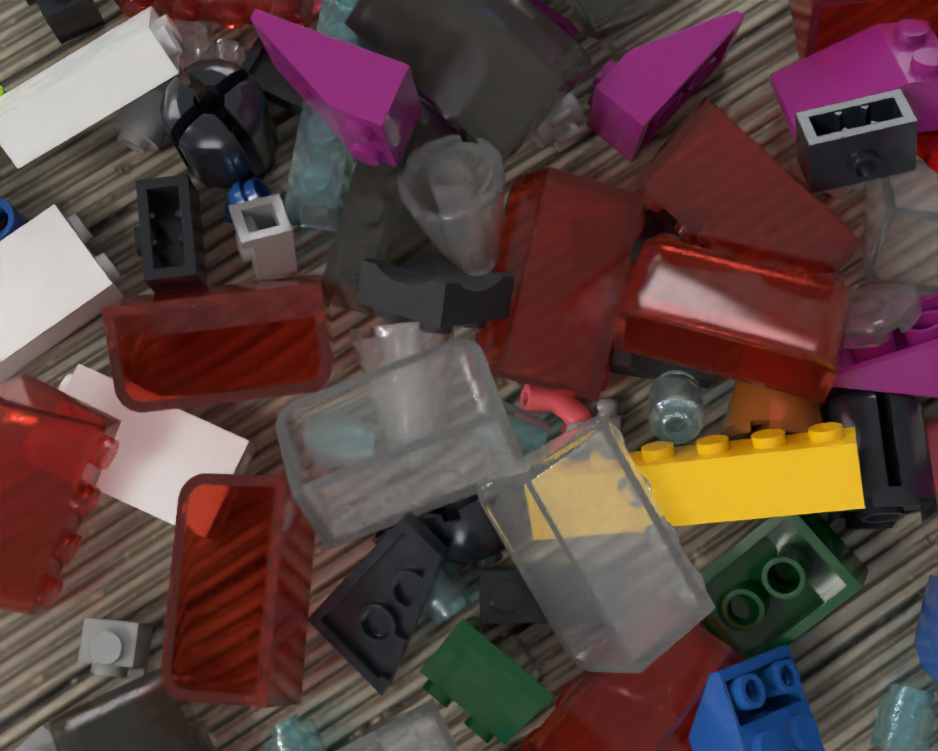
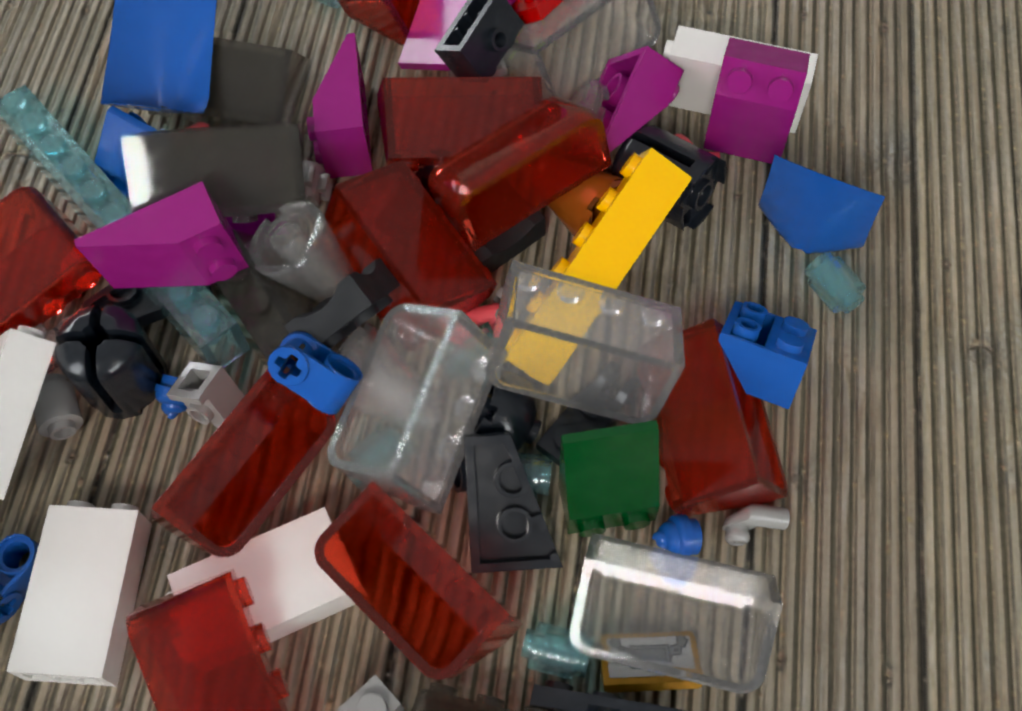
camera: 45 degrees left, 15 degrees down
(170, 234) = (142, 447): black brick -> none
(343, 332) = (319, 373): none -> blue piece
(676, 407) = (541, 244): clear light blue brick -> none
(778, 582) = (694, 271): dark green slope -> none

